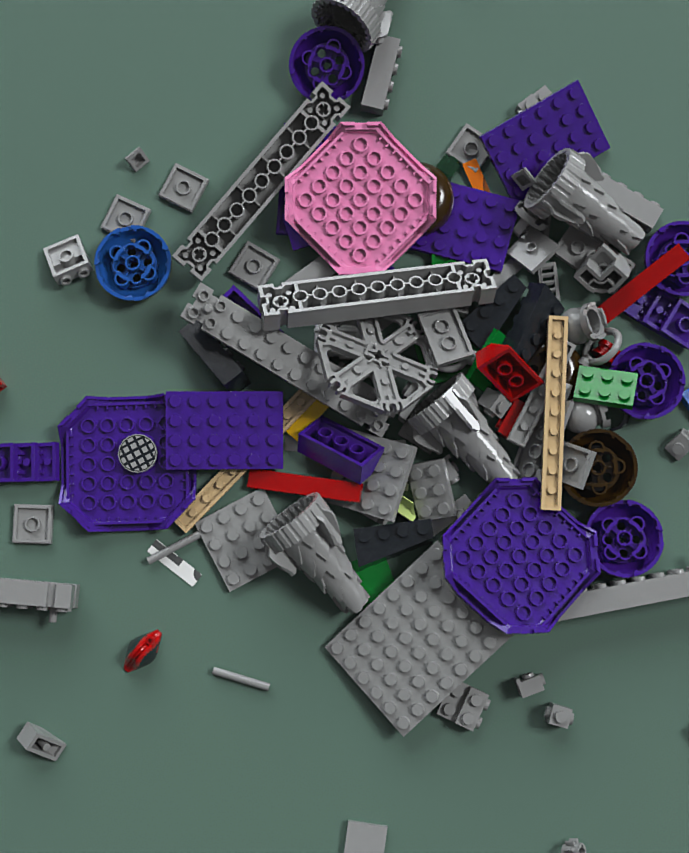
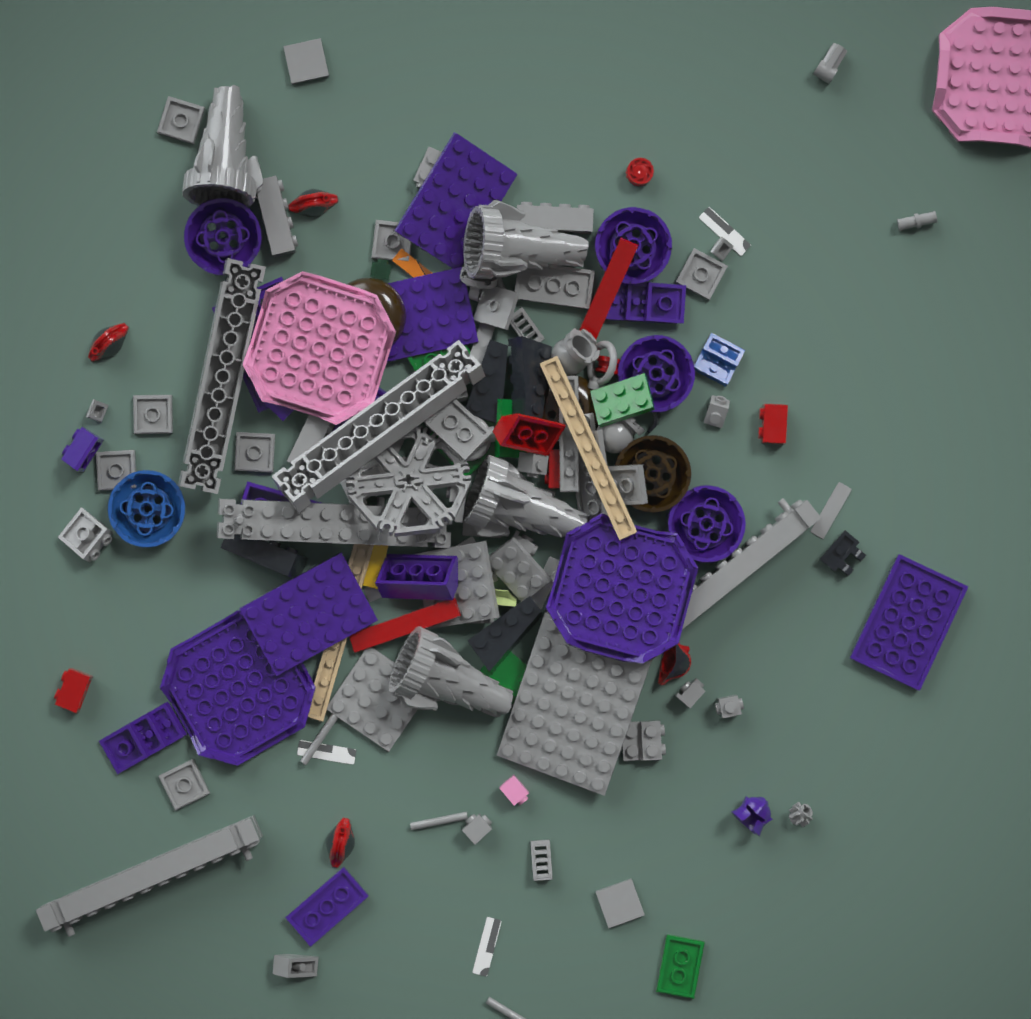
camera: 25 degrees left, 5 degrees up
(99, 702) = (327, 906): none -> dark purple plate
(105, 184) = (82, 449): none -> dark purple slope
(137, 453) = (243, 674): tile -> none
(179, 107) = (108, 342): none -> red hat
(223, 817) = (487, 946): none -> white sticker
(272, 703) = (477, 827): none -> light grey brick
(313, 783) = (546, 876): none -> light grey slope
(323, 688) = (514, 790): none -> bright pink brick
(419, 81) = (313, 203): none -> red hat
(523, 178) = (454, 247): light grey slope -> none
(528, 649) = (674, 663): none -> hat
(531, 827) = (753, 813): none -> dark purple helmet
(603, 270) = (567, 295): light grey brick -> none

